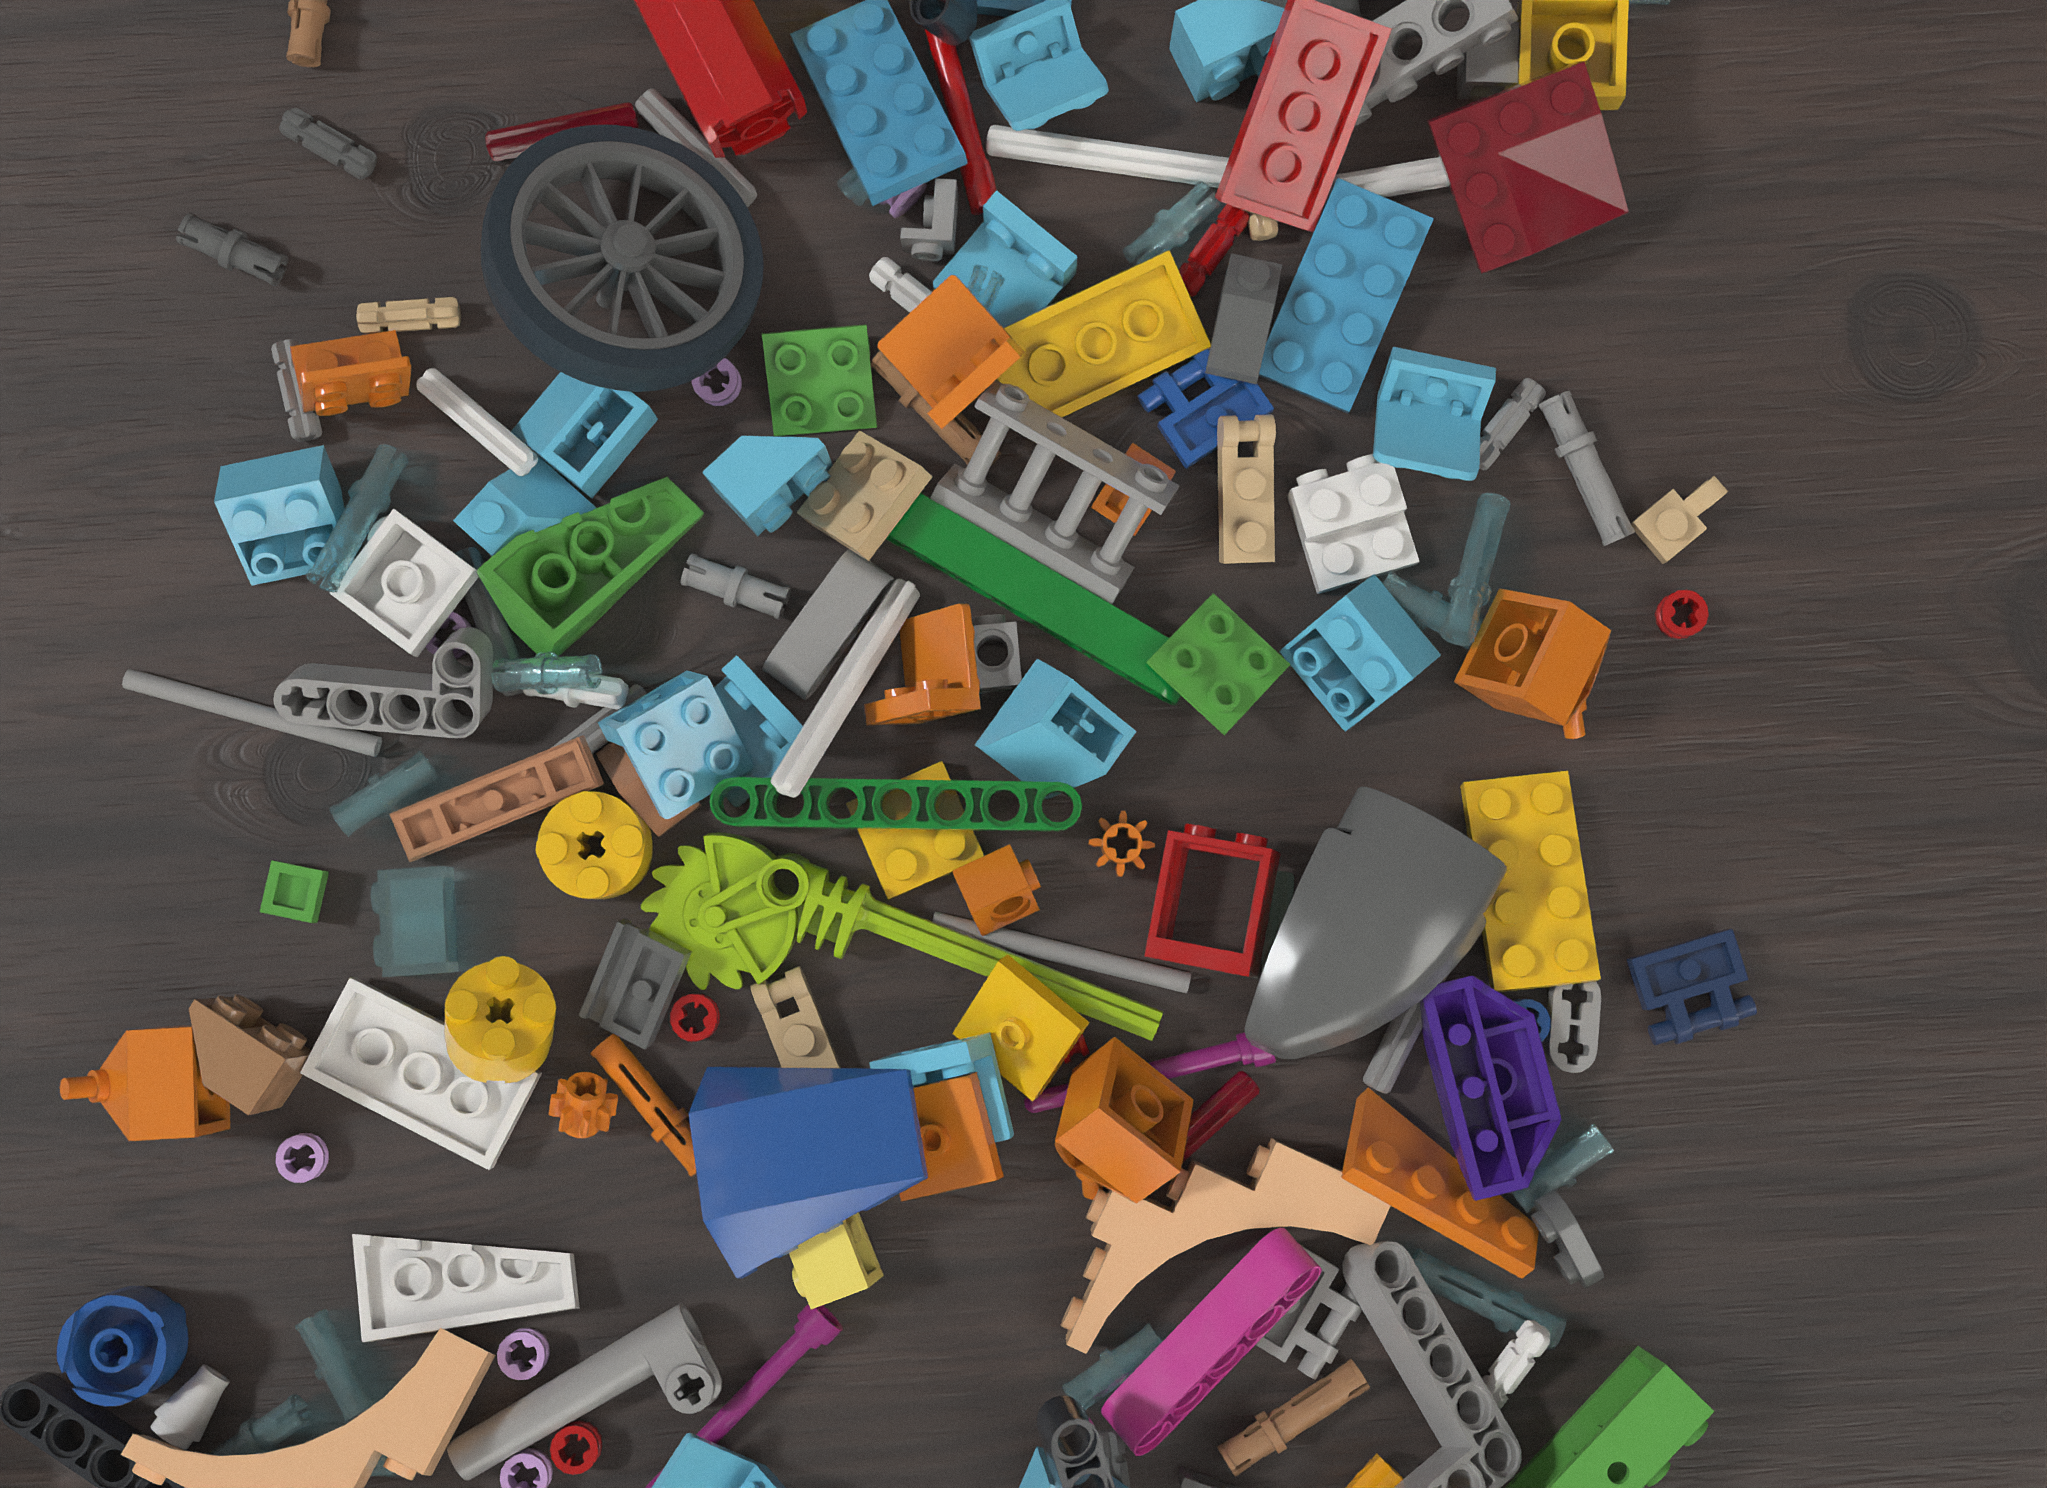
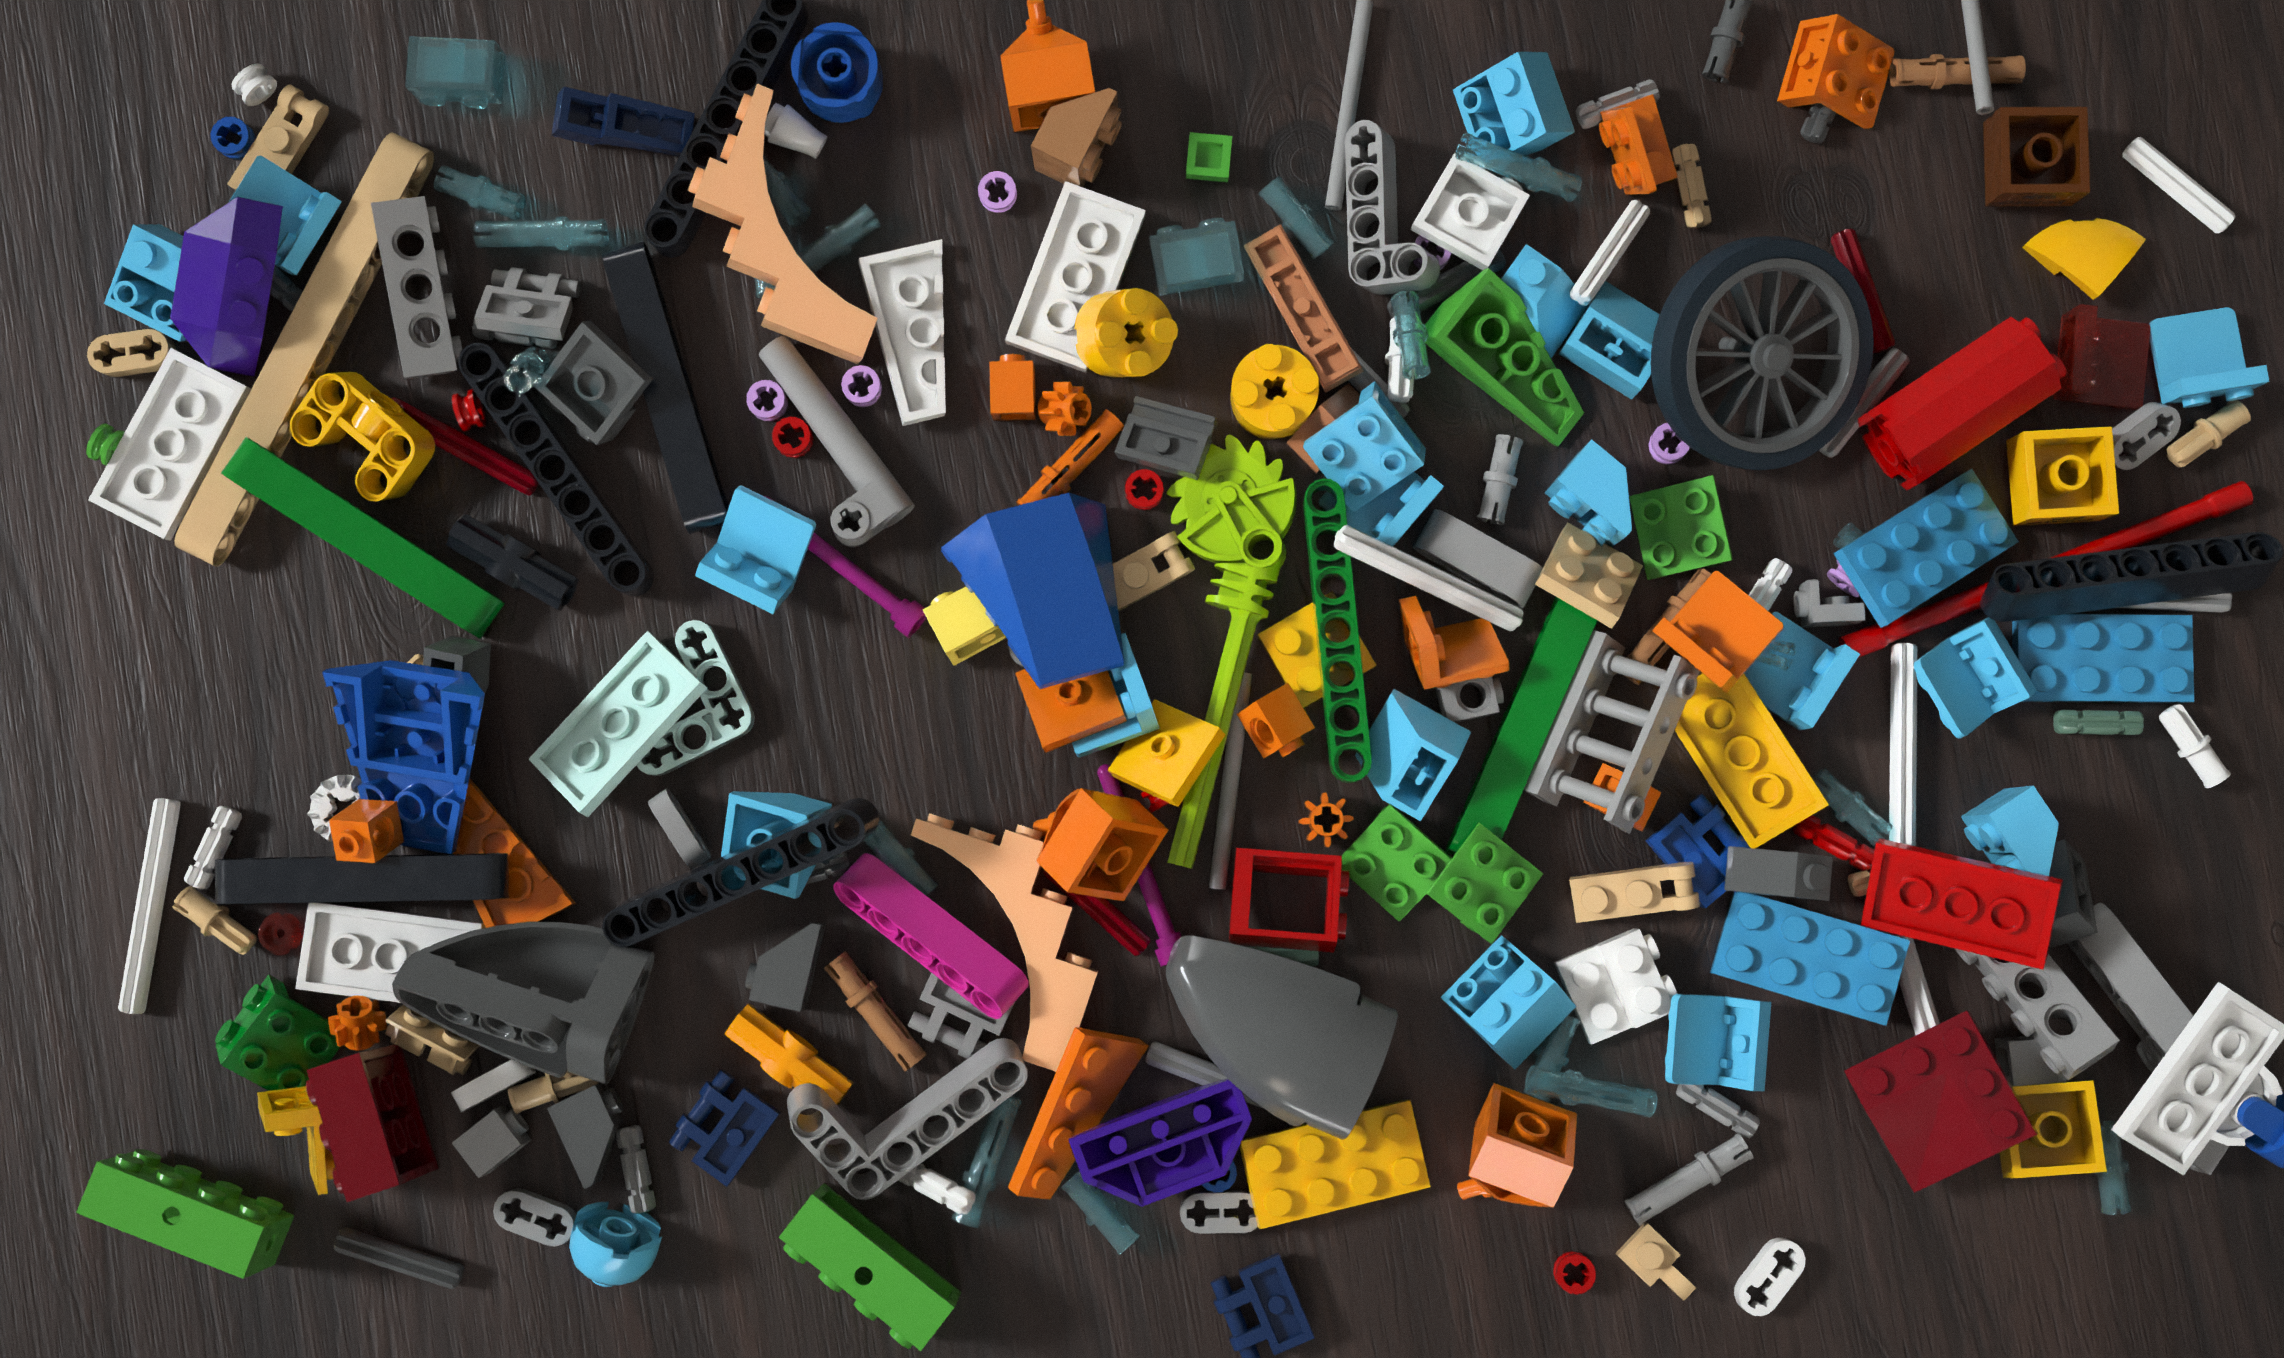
camera: 90 degrees right, 0 degrees up
(288, 125) = (1837, 67): none -> orange bracket
(550, 1166) = (1012, 388): none -> orange brick
(1180, 767) = (1394, 862): none -> bright green hinge
(1559, 1225) = (1028, 1231): dark grey plate -> none
(1715, 380) = (1778, 1283): none -> white beam

